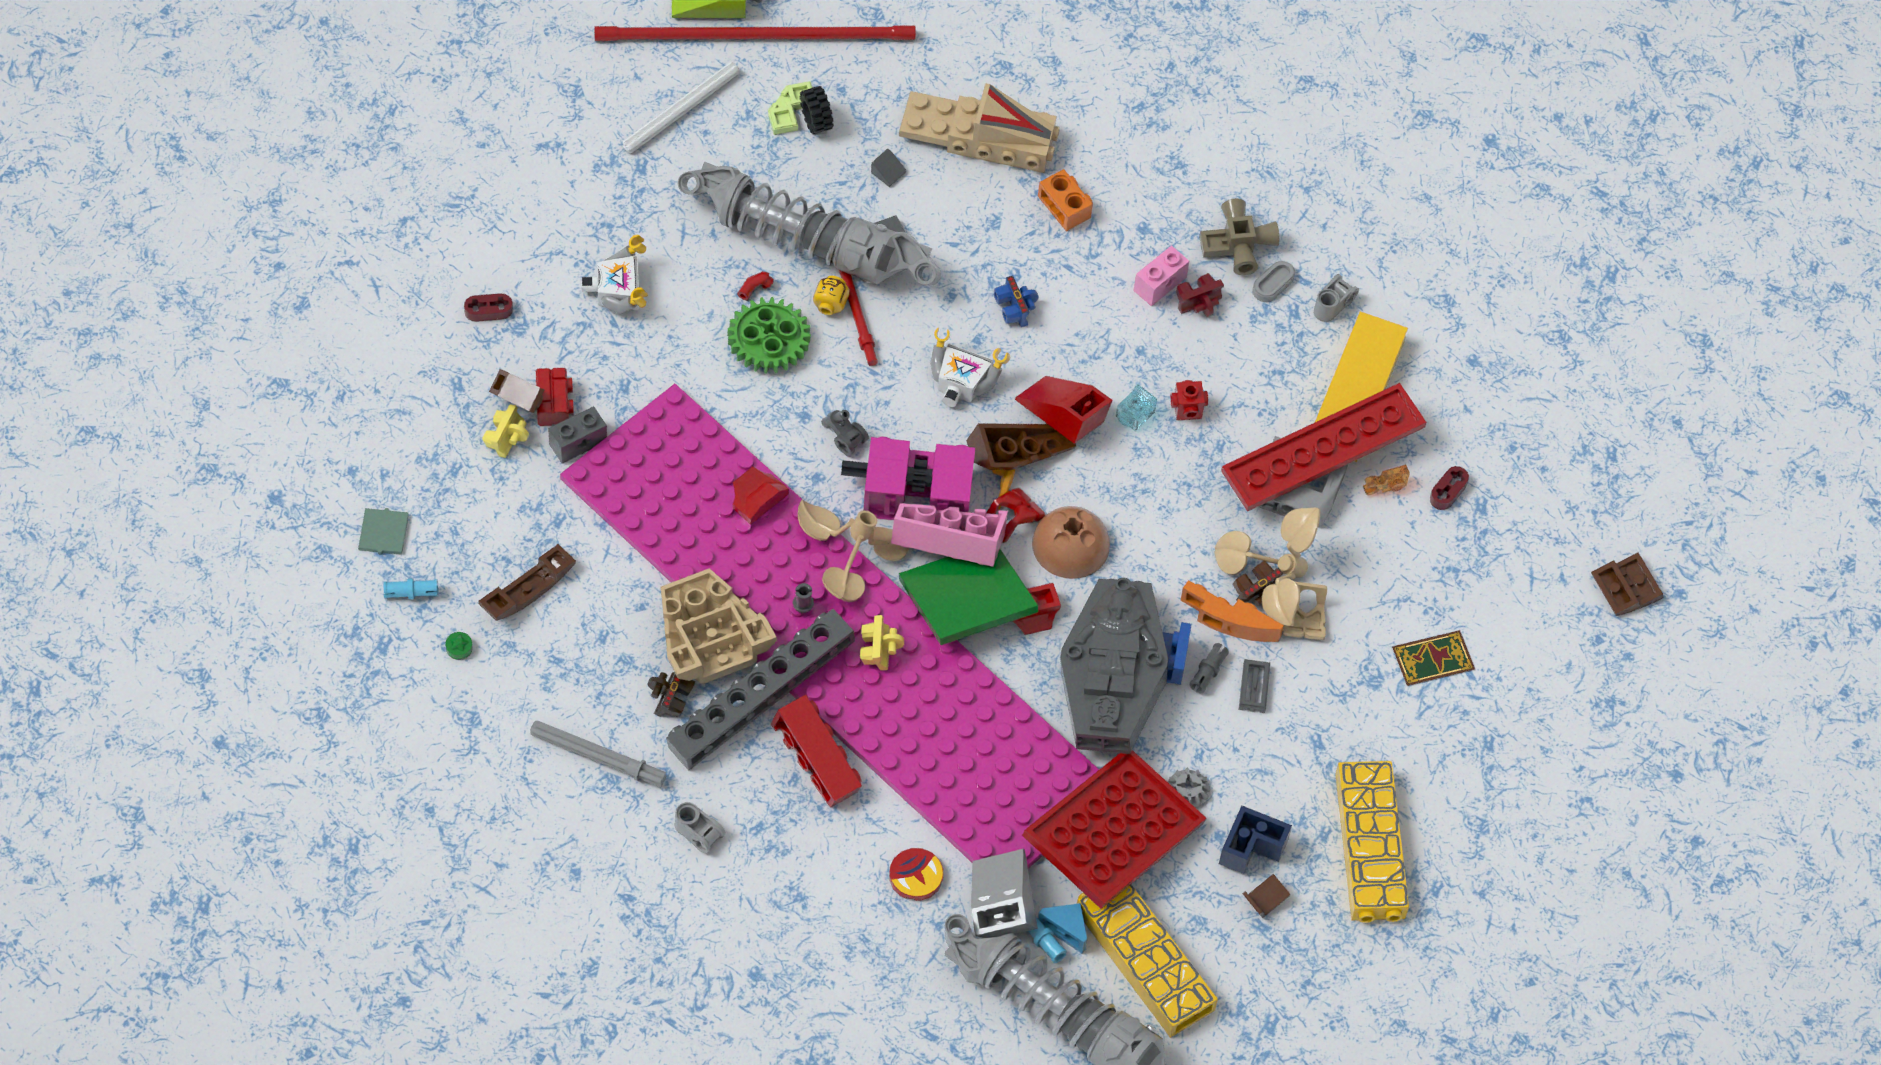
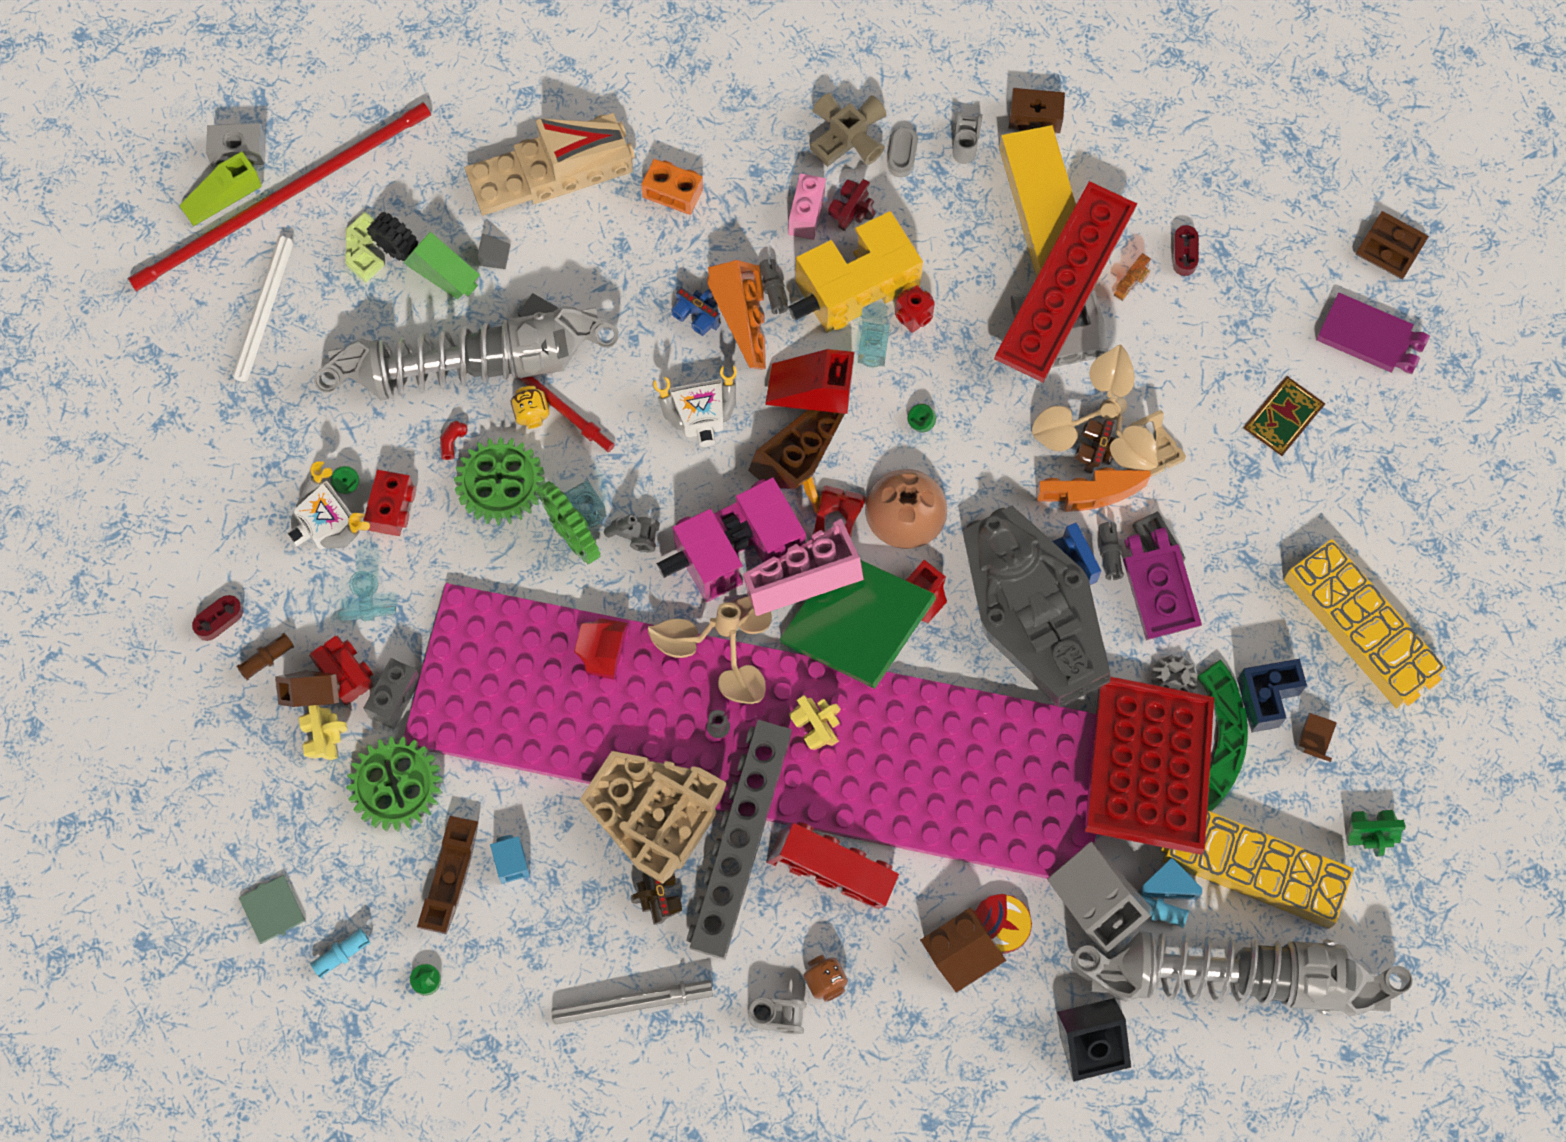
camera: 30 degrees left, 10 degrees up
(503, 354) = (265, 656): none -> reddish brown pin
(510, 494) = (370, 793): none -> bright green gear
(580, 601) = (509, 859): none -> dark azure brick
(602, 366) = (366, 610): none -> clear light blue piece
(652, 265) = (344, 479): none -> green tile
(673, 301) = (389, 502): none -> red brick
(752, 824) = (825, 978): none -> dark orange head
(795, 389) = (568, 522): none -> bright green gear
(821, 381) = (585, 494): none -> clear light blue brick
(839, 154) = (442, 267): none -> bright green slope
(870, 867) = (963, 950): none -> reddish brown slope
(923, 993) = (1094, 1039): none -> black slope
(1054, 309) = (737, 292): none -> orange wedge
(1090, 320) = (773, 286): none -> dark grey pin
(1133, 484) = (922, 418): none -> green tile
(1141, 351) = (838, 290): none -> yellow piece
(1197, 860) = (1231, 731): none -> green tile
(1227, 716) = (1160, 586): none -> magenta tile
(1259, 990) = (1375, 834): none -> green hips
(1409, 310) = (1036, 109): none -> reddish brown brick
(1554, 639) = (1371, 335): none -> magenta tile

